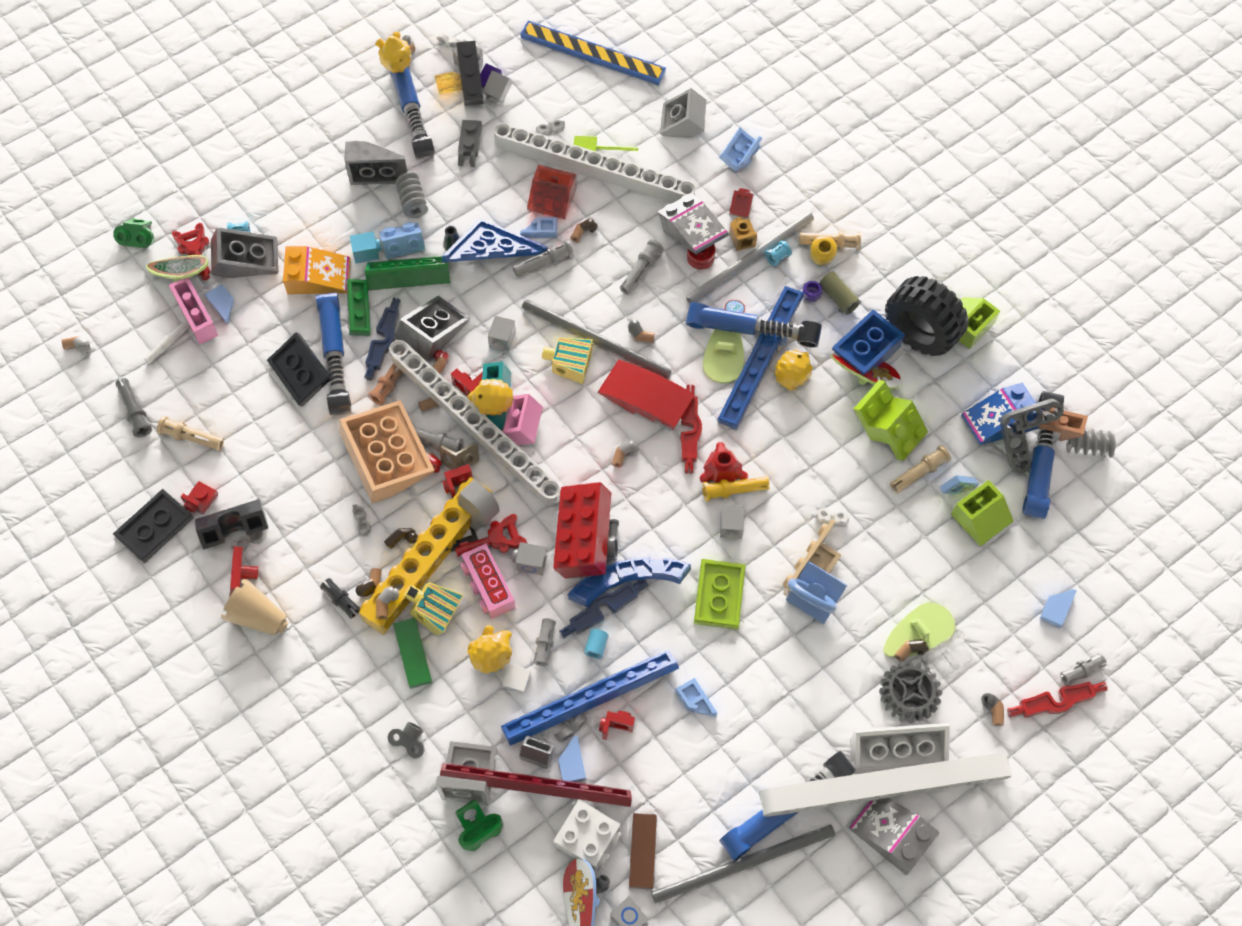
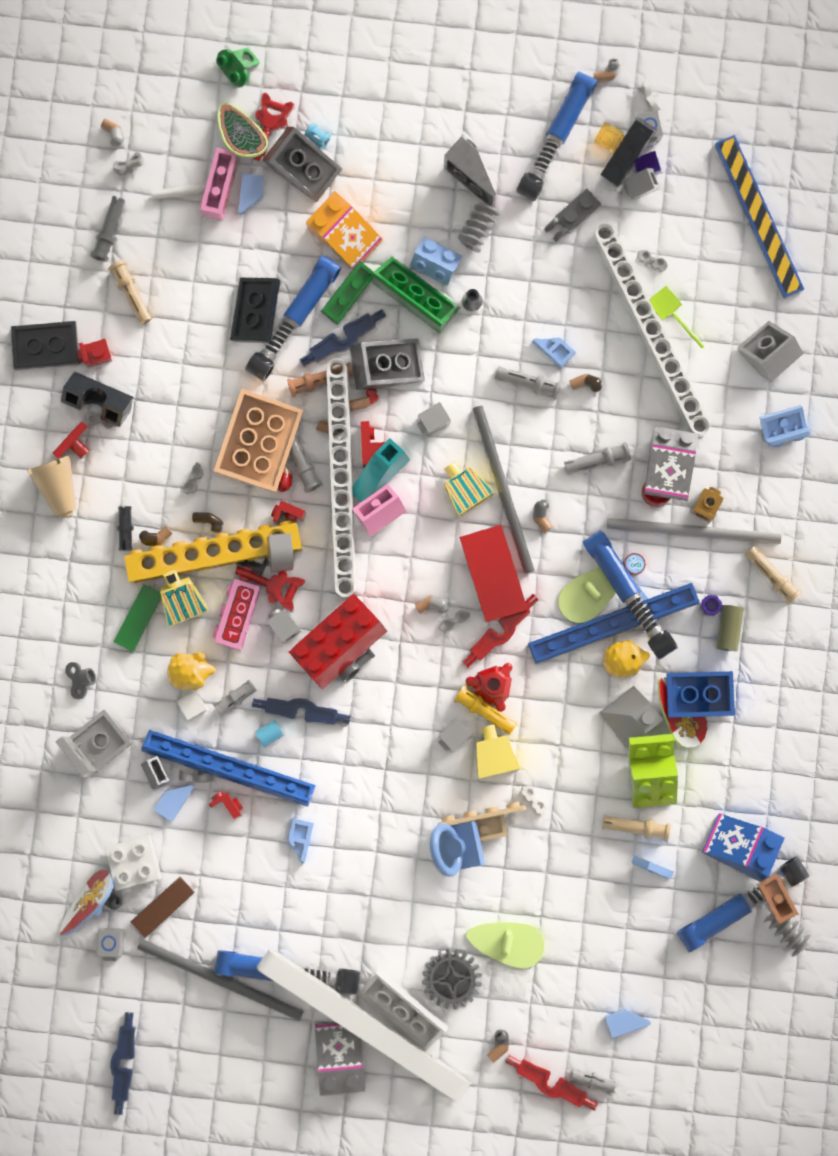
camera: 45 degrees right, 20 degrees up
(111, 348) = (135, 161): none -> light grey piece
(365, 247) = (400, 243): medium azure brick -> none
(382, 601) = (147, 564): arm -> none
(394, 53) = (578, 81): yellow animal -> none
(465, 456) = (306, 501): dark tan bracket -> none
(479, 829) = (68, 789): green bracket -> none
(491, 241) = (499, 329): tile -> none
(492, 397) = (367, 475): yellow animal -> none
(540, 785) = (130, 797): dark red tile -> none
(552, 191) = (590, 327): clear red slope -> none
(625, 571) = (342, 699): blue tile -> none
(652, 444) = (460, 616): none -> light grey piece
(719, 594) = (393, 779): lime tile -> none
(741, 203) = (735, 476): red bracket -> none
(773, 509) = (494, 754): none -> light yellow torso
(778, 253) = (718, 548): medium azure bush -> none
(823, 250) = (753, 581): yellow head -> none
(836, 402) = (630, 715): none -> light grey slope
(910, 646) = (487, 949): arm -> none
(927, 315) = (764, 718): black tyre -> none
(981, 317) = (805, 746): lime slope -> none
(983, 513) = (644, 906): lime slope -> none
(1023, 424) = (741, 871): dark grey beam -> none

